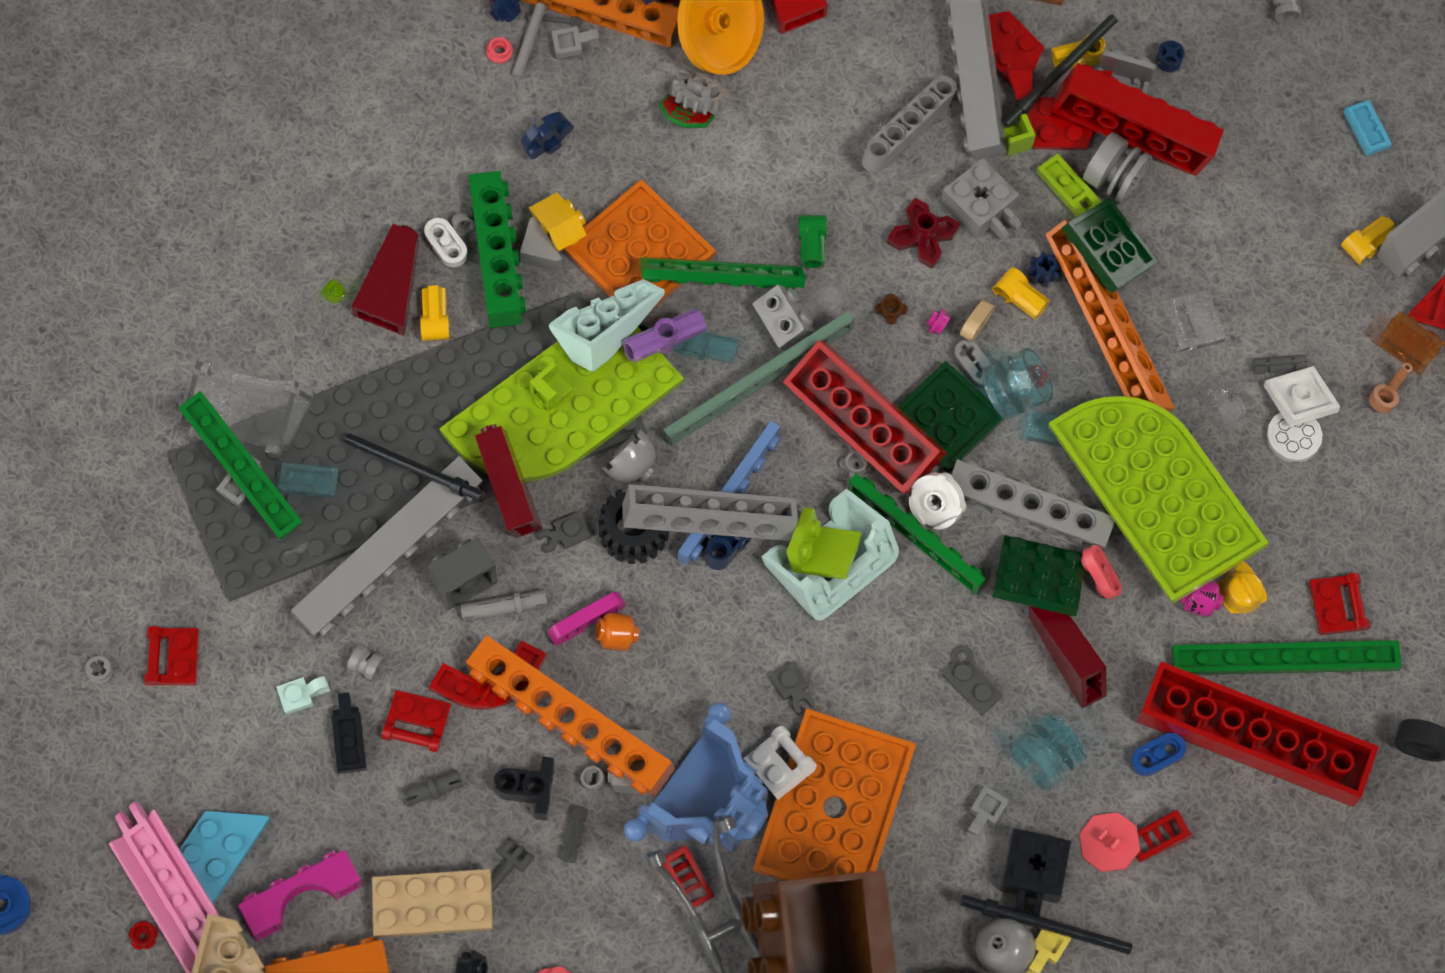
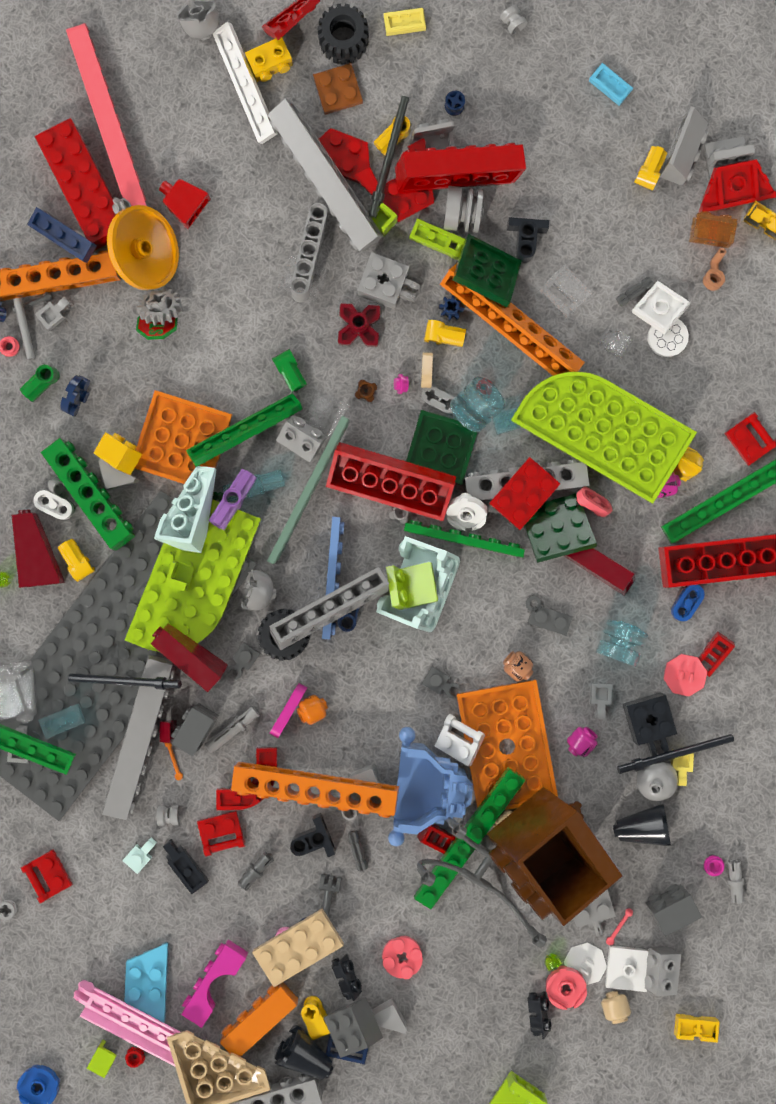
camera: 25 degrees left, 20 degrees up
(103, 911) = (101, 1060): none -> lime panel
(405, 625) = (178, 776): none -> orange hinge
(422, 560) = (166, 730): none -> dark red slope
(510, 104) = (38, 384): none -> green piece
(711, 895) = (477, 828): none -> green plate
(902, 715) = (518, 666): none -> nougat head
(934, 850) = (582, 742): none -> dark pink head
(1020, 512) = (524, 493): none -> red plate
(1177, 243) = (527, 241): none -> black tile

